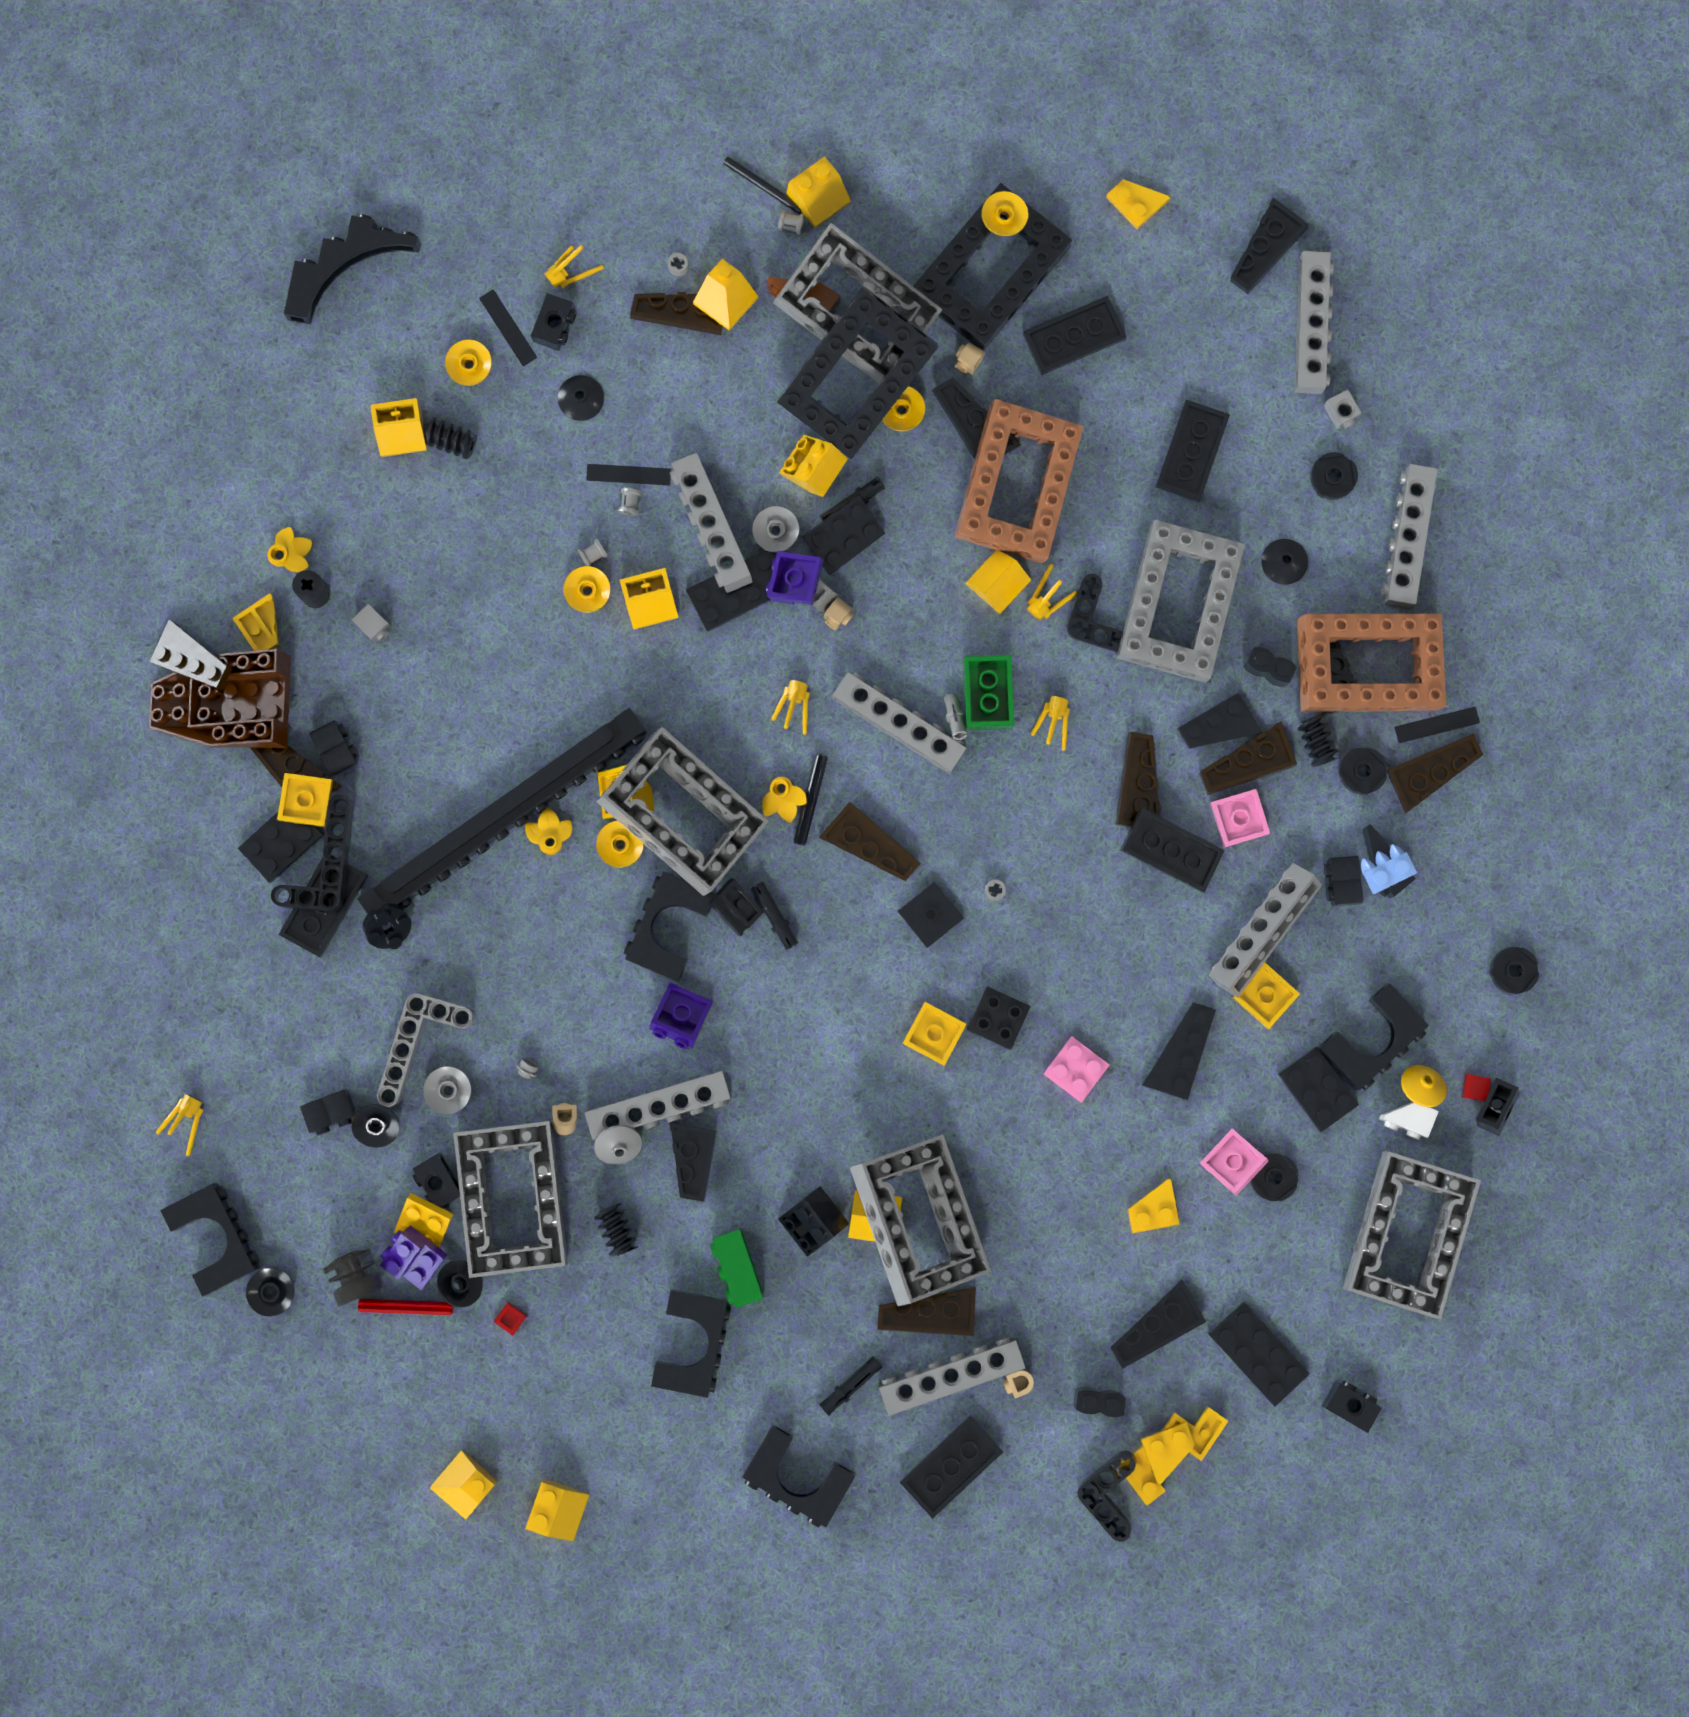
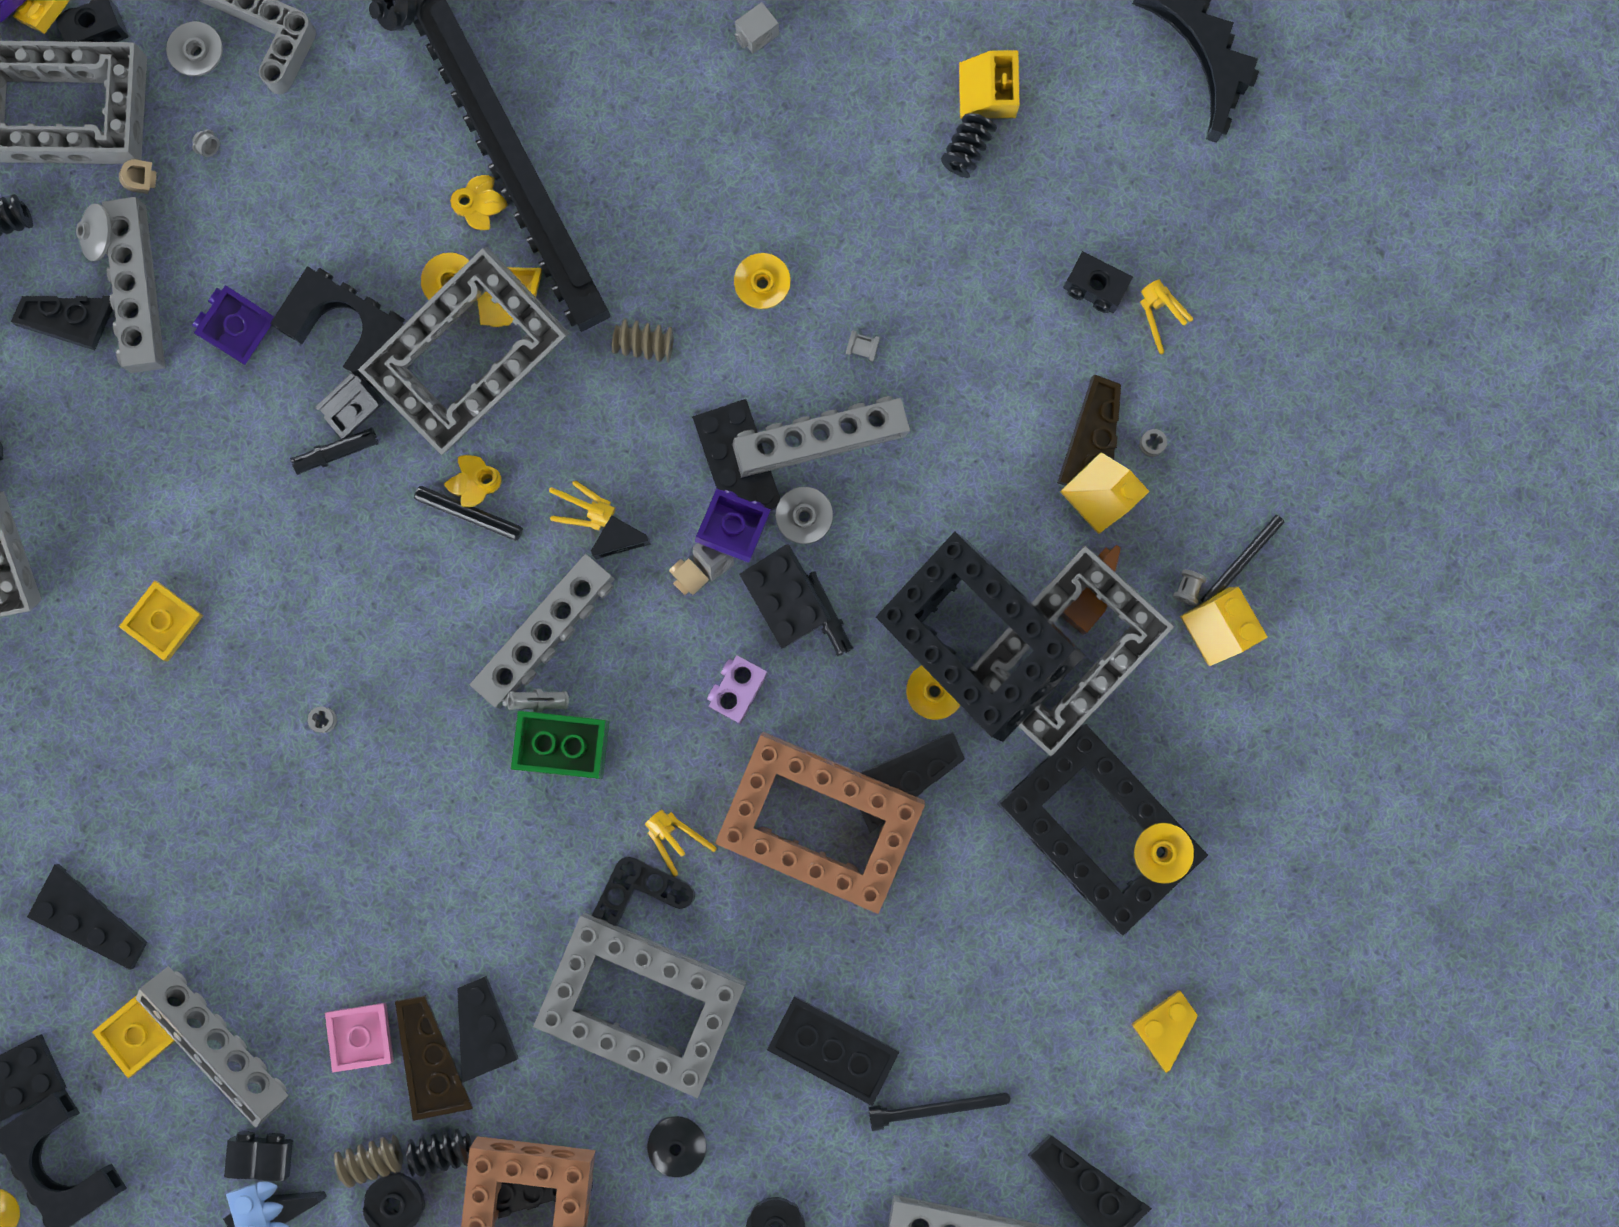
camera: 105 degrees right, 0 degrees up
(464, 352) = (1063, 164): yellow dish -> none
(508, 327) = (1099, 232): black sticker -> none
(583, 408) = (999, 319): black dish -> none
(592, 553) = (806, 293): light grey bush -> none
(628, 474) = (899, 349): black sticker -> none
(649, 598) = (738, 351): yellow slope -> none
(649, 676) = (642, 340): none -> dark tan piece
(813, 465) = (877, 571): yellow slope -> none
(814, 674) = (618, 538): none -> black slope
(866, 840) = (410, 570): dark brown wing -> none
(925, 556) = (744, 692): none -> lavender brick
(930, 915) = (306, 637): black plate -> none
(969, 358) = (989, 783): tan plate -> none
(998, 1018) = (165, 701): black brick -> none
(999, 580) = (702, 779): yellow slope -> none
(1057, 708) = (531, 828): yellow plant -> none
(1074, 335) = (1001, 922): black plate -> none
(1076, 1069) = (90, 786): bright pink plate -> none
(1138, 780) = (413, 915): dark brown wing -> none
(1172, 850) = (330, 945): black plate -> none
(1237, 407) = (881, 1116): none -> black piece
(1274, 669) = (538, 1110): black brick -> none
(1333, 794) = (369, 1163): none -> dark tan piece

